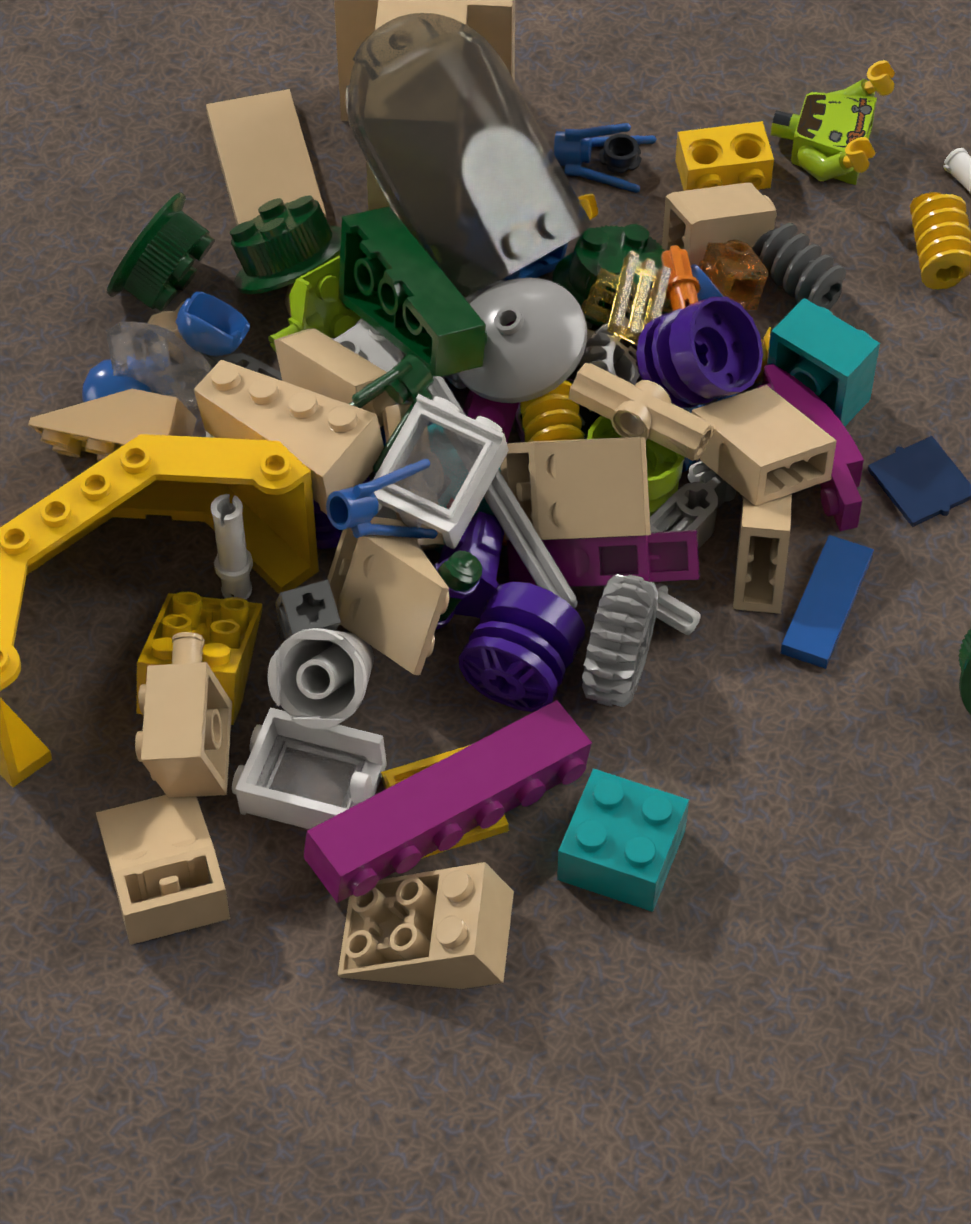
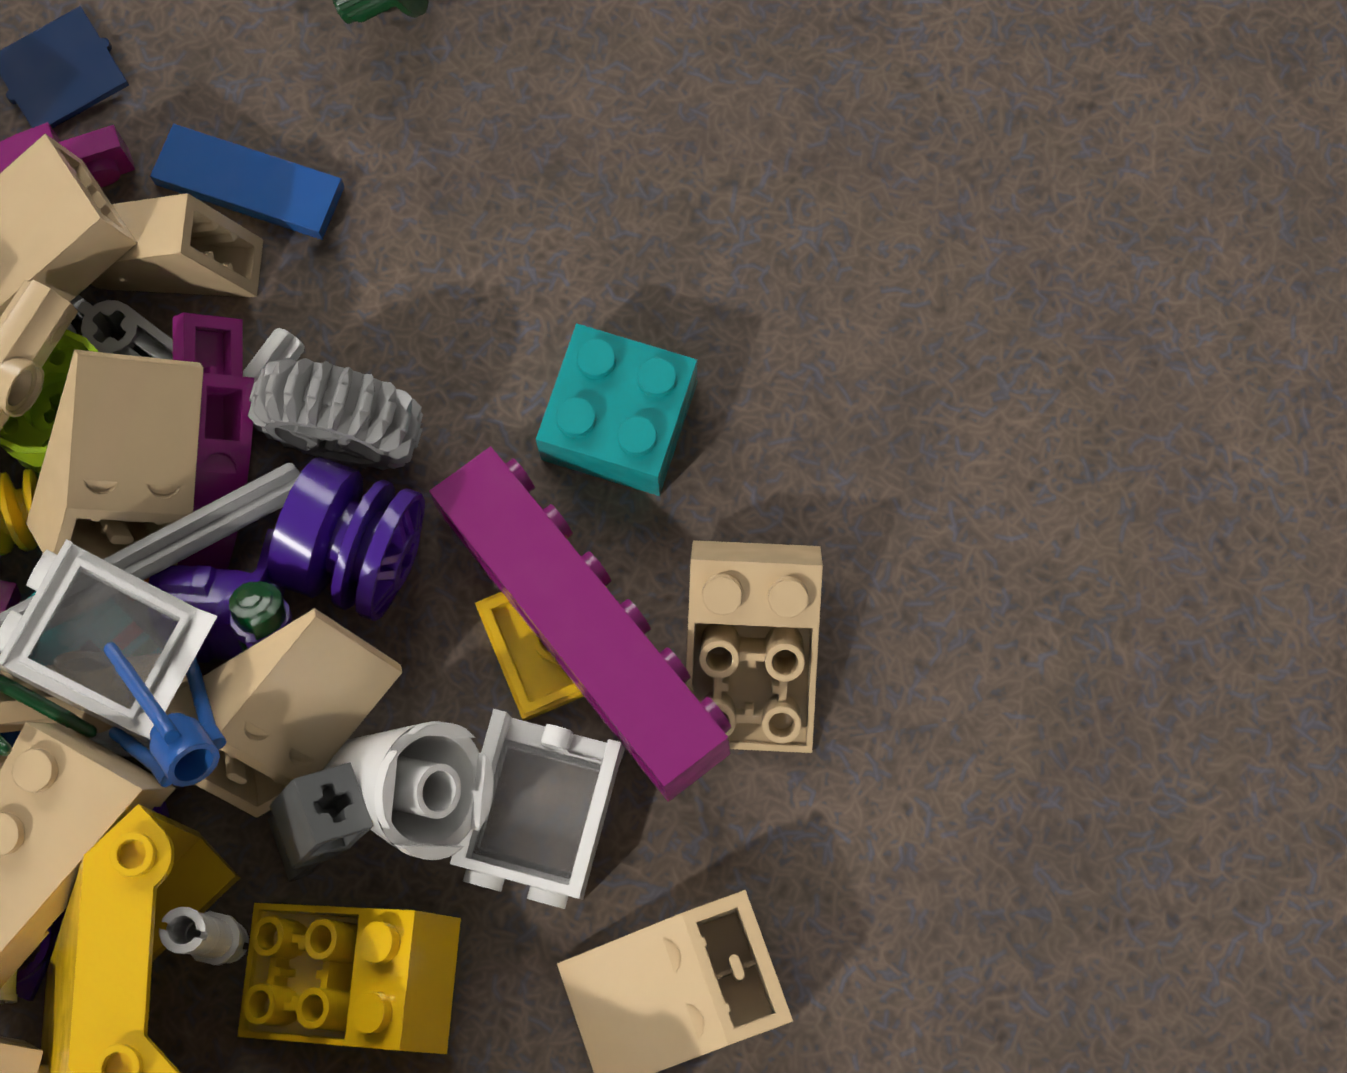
camera: 90 degrees left, 20 degrees up
(185, 723) = (498, 970): tan brick -> none

